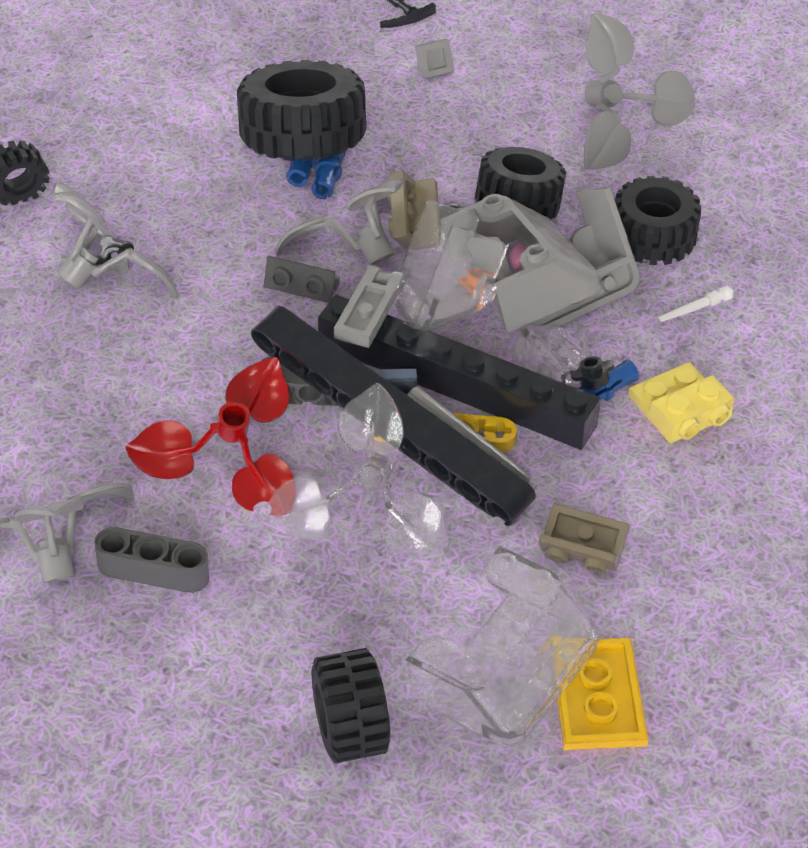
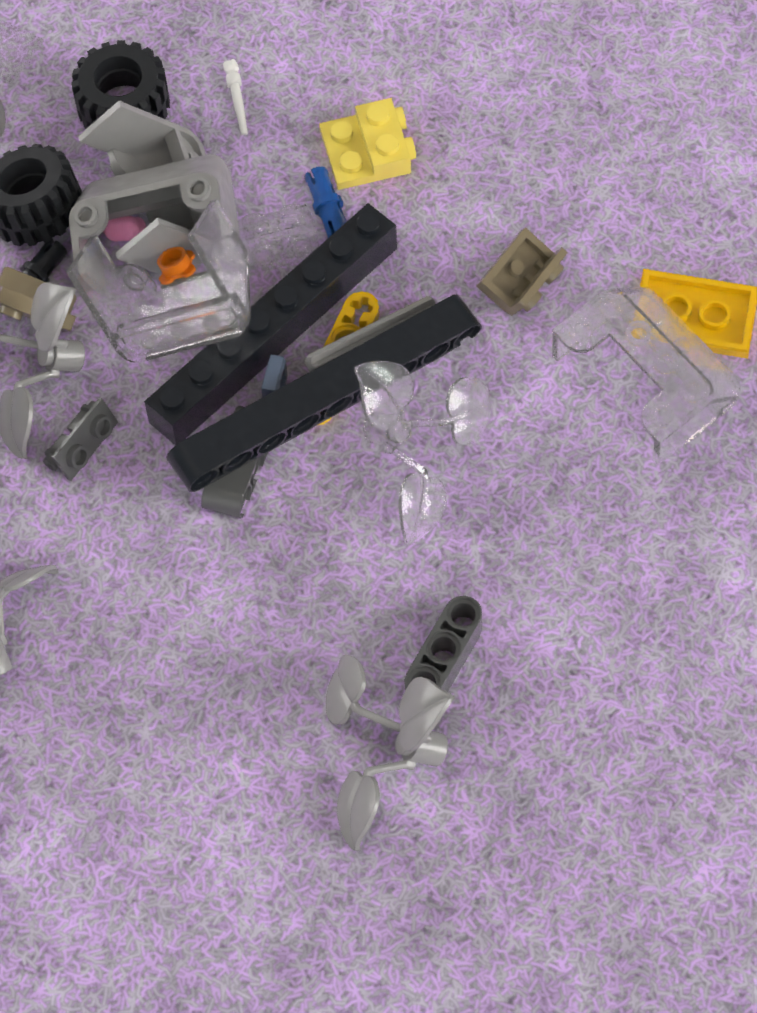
camera: 70 degrees left, 15 degrees up
(257, 392) = (258, 506): red plant -> none
(350, 705) = (691, 504): black tyre -> none
(369, 306) = (192, 366): light grey plate -> none
(593, 372) = (328, 210): black plate -> none

